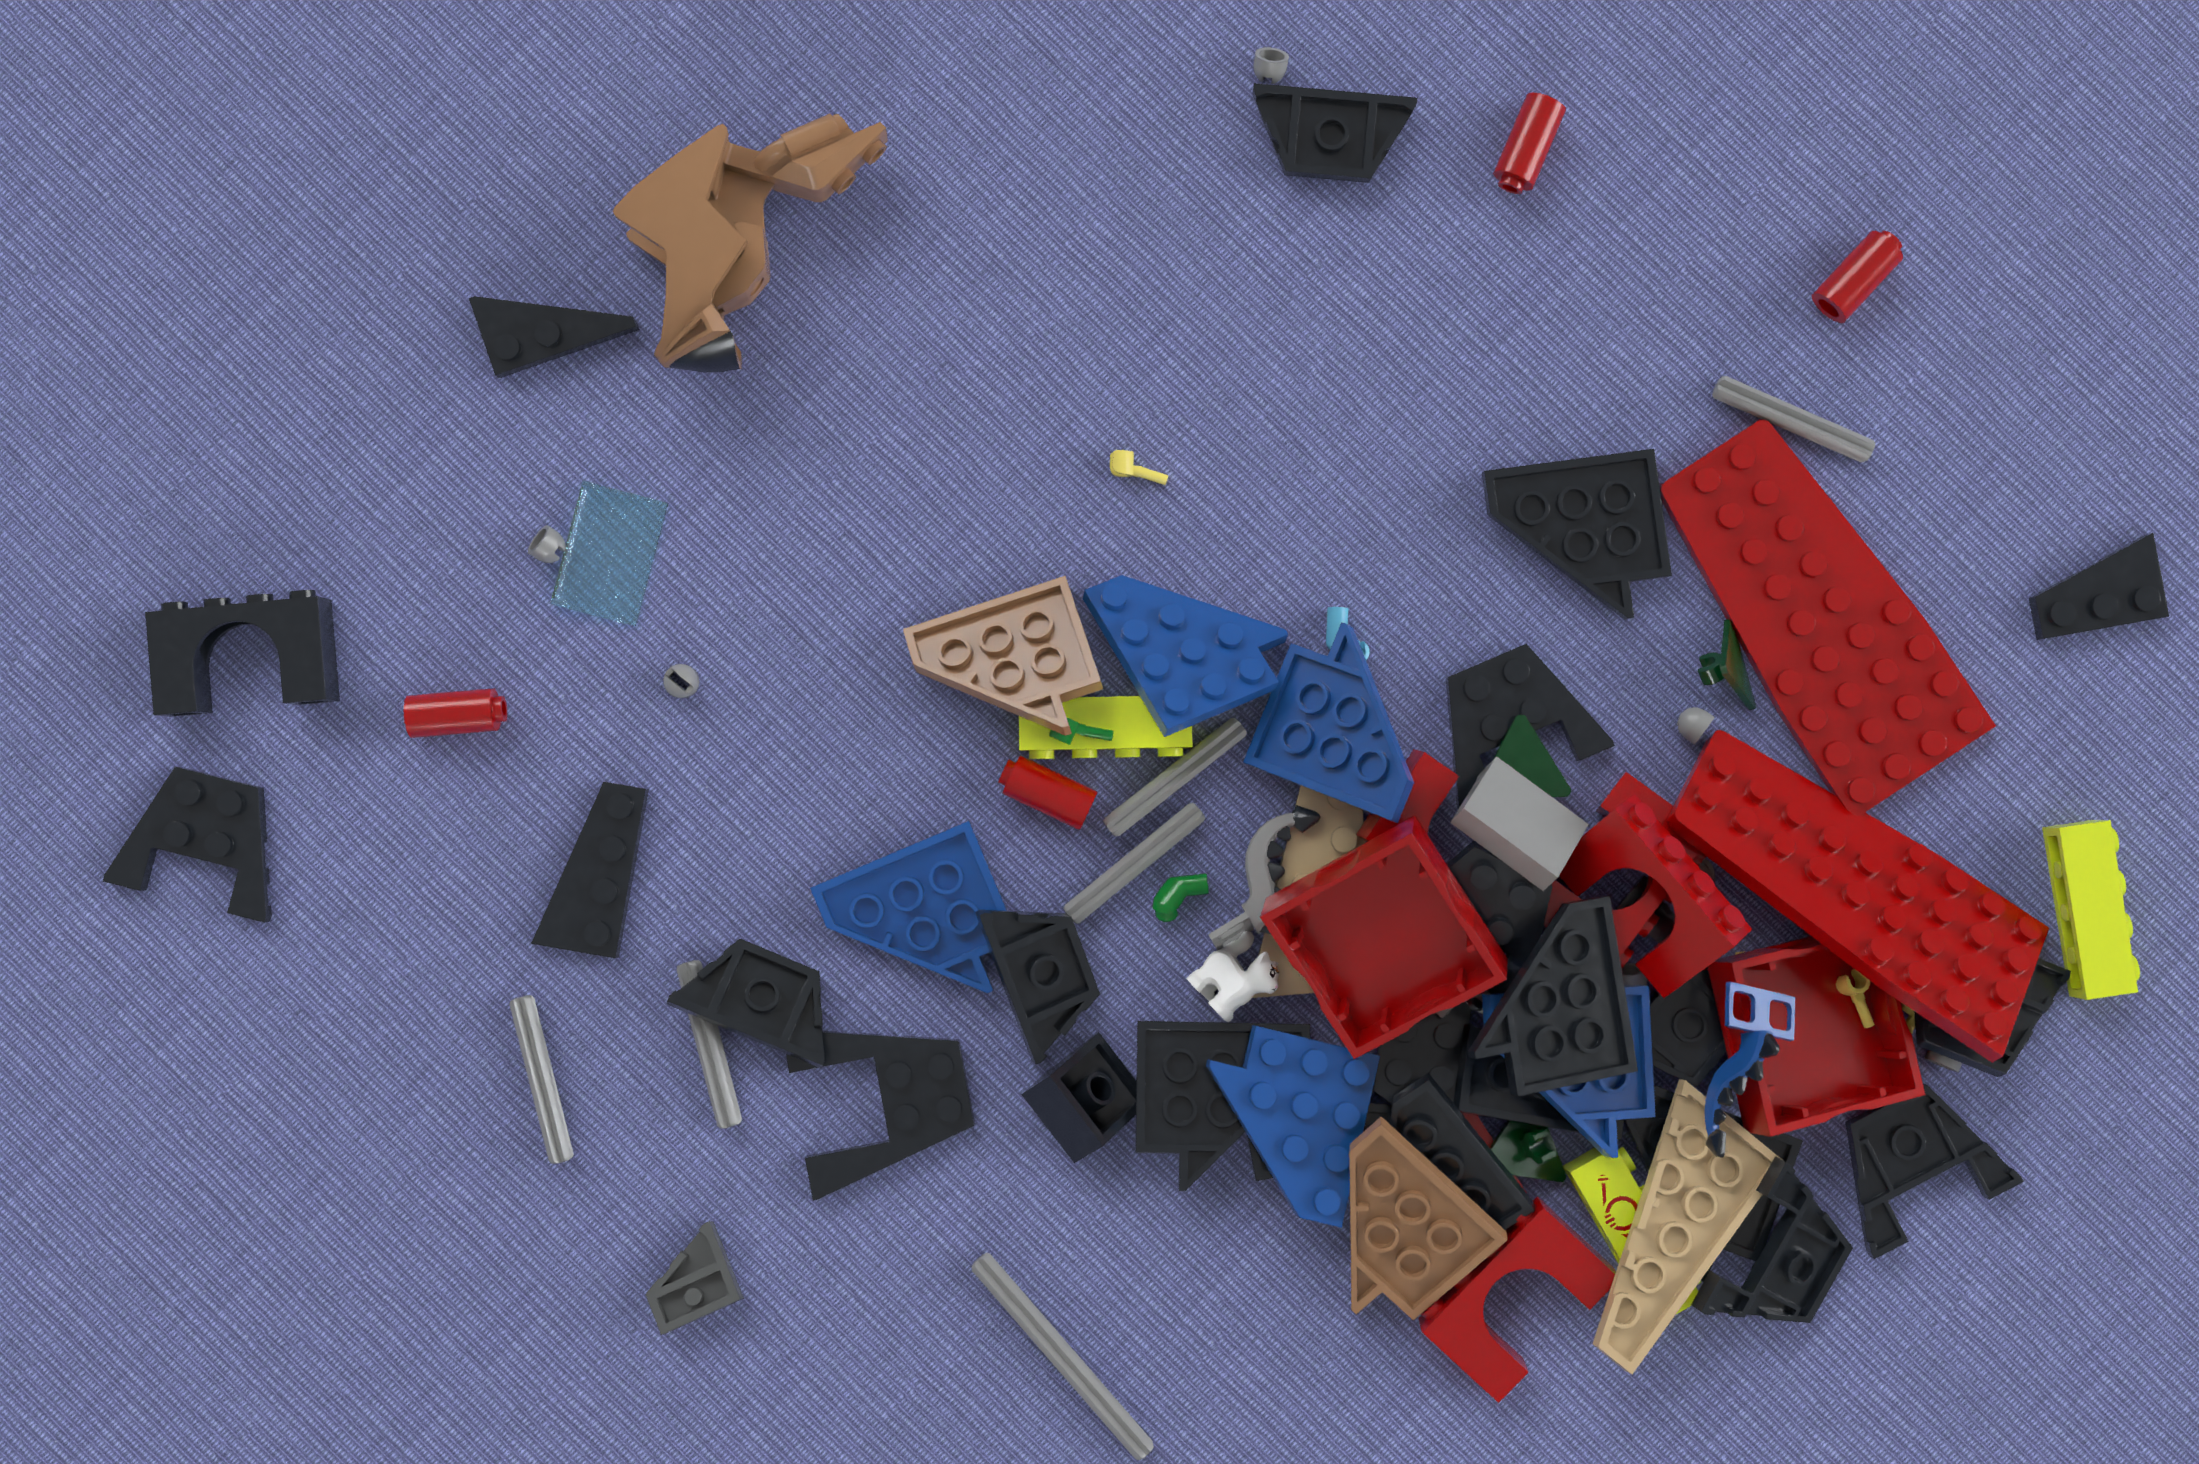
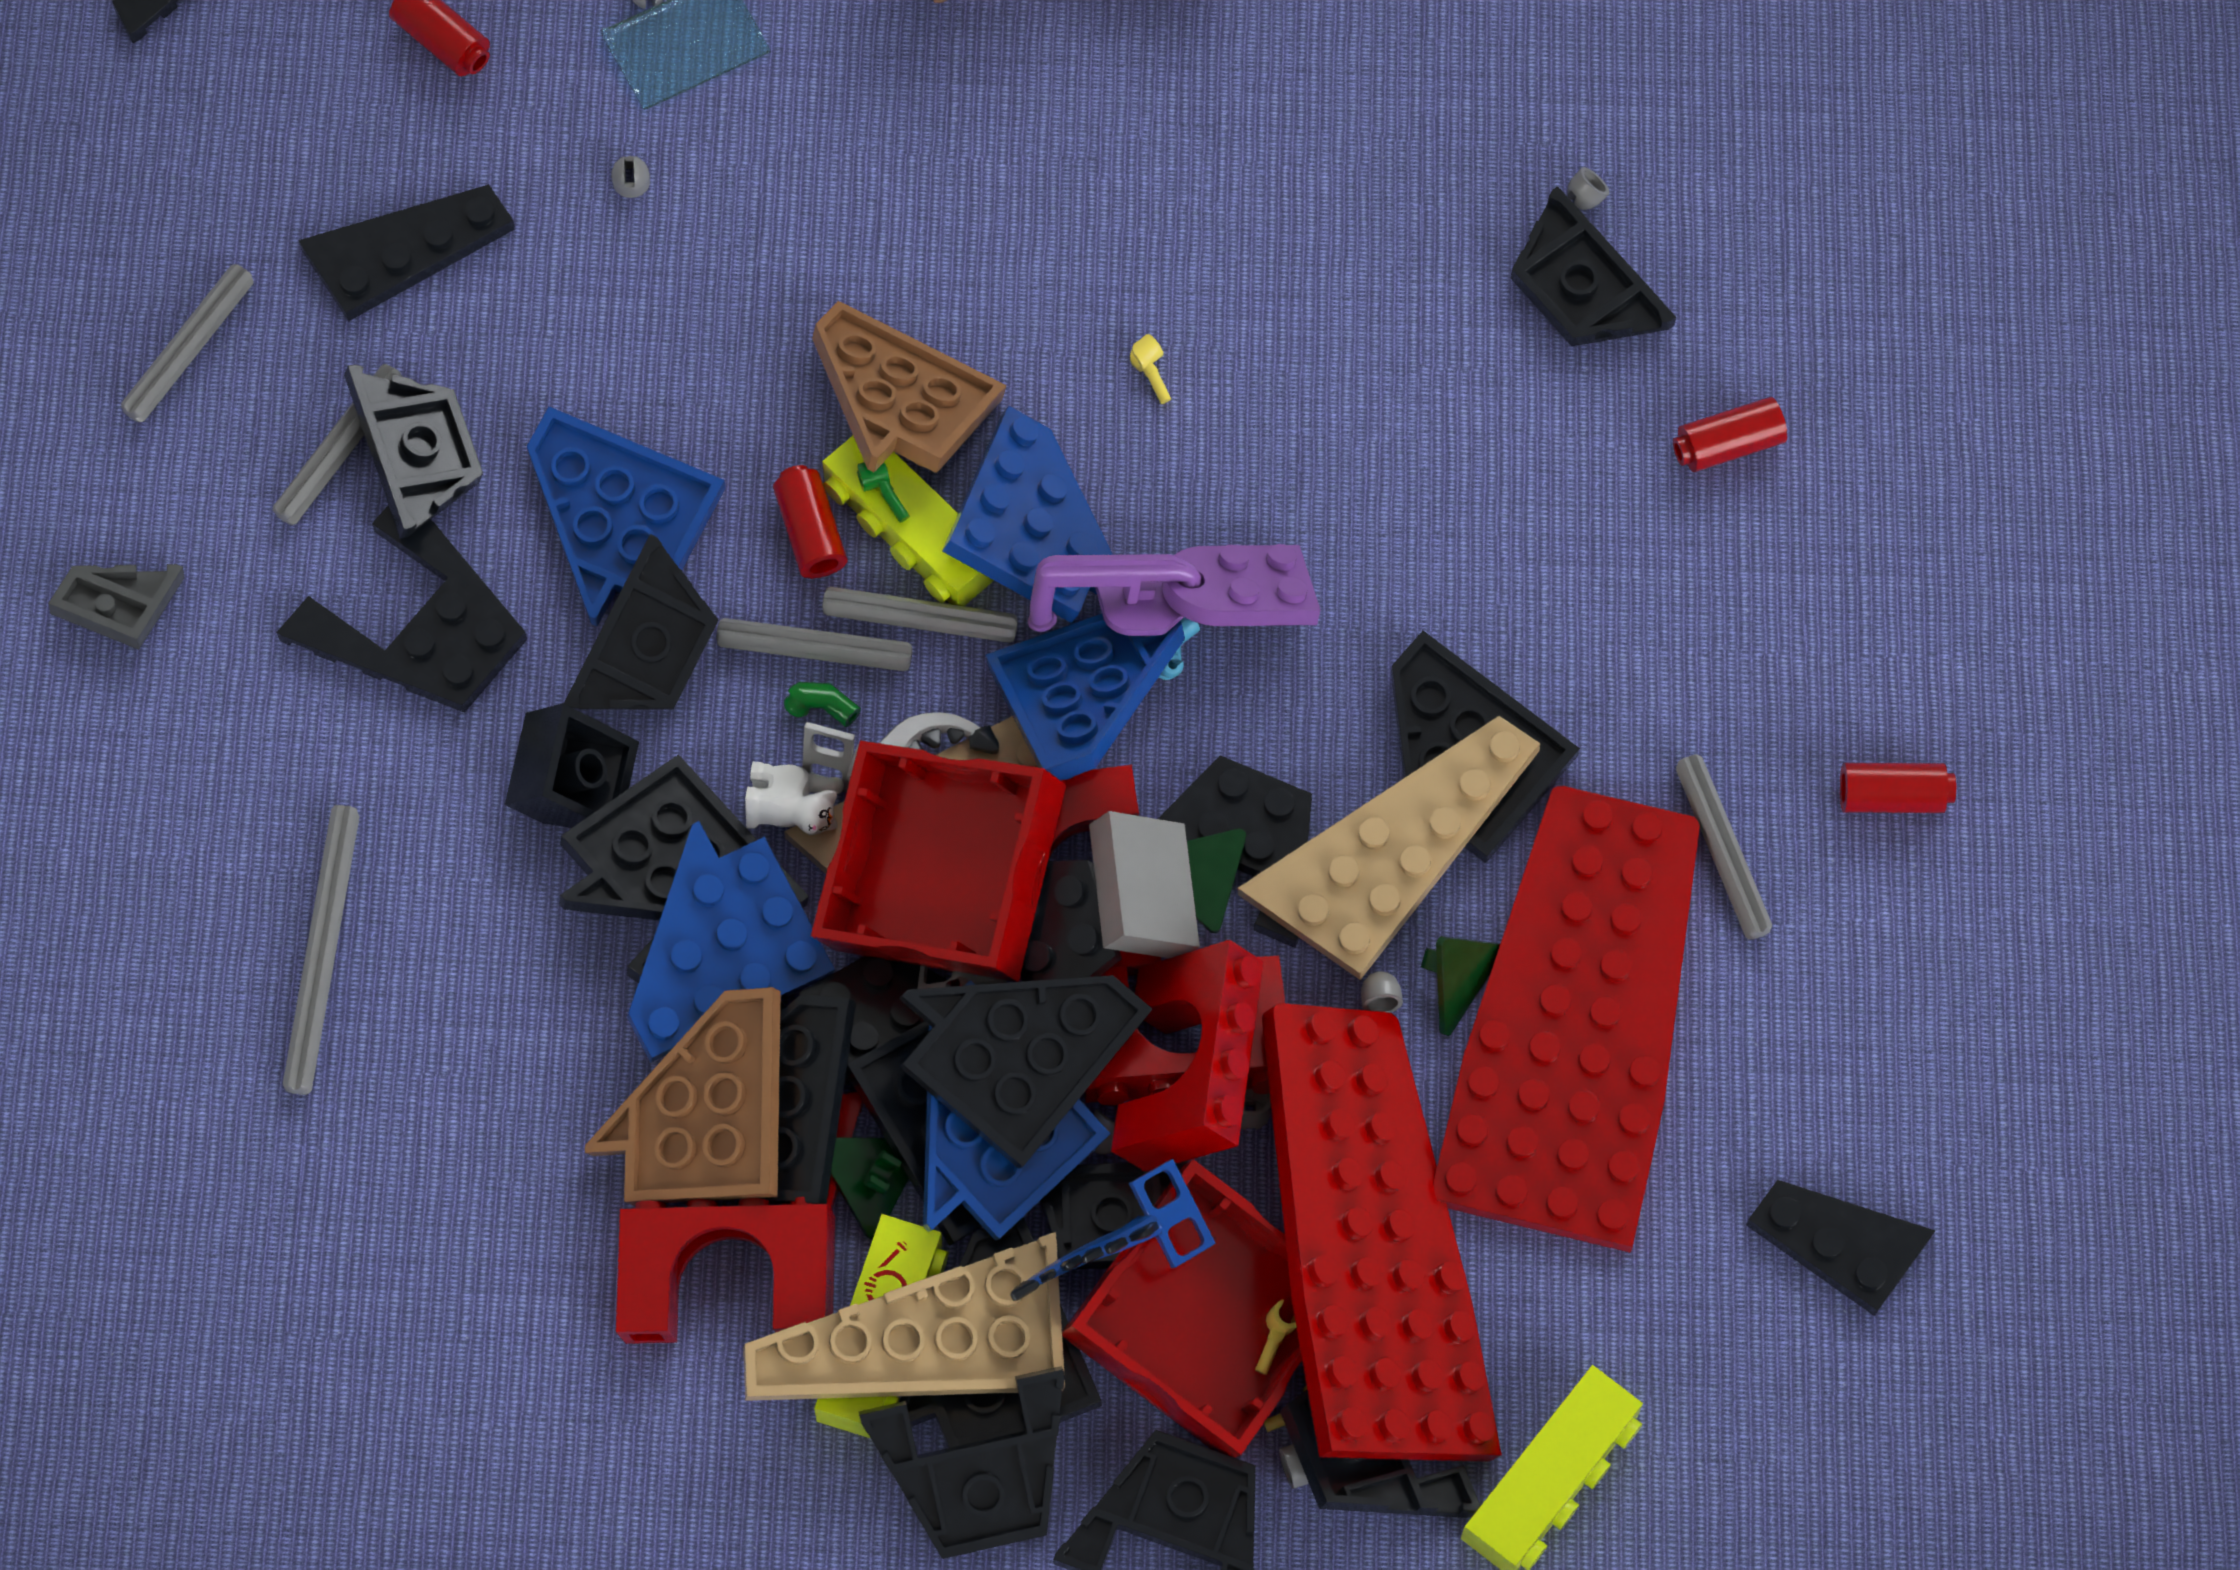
camera: 45 degrees right, 20 degrees down
(1351, 556) = (1199, 583): none -> medium lavender plate
(1617, 649) = (1376, 866): none -> tan wing

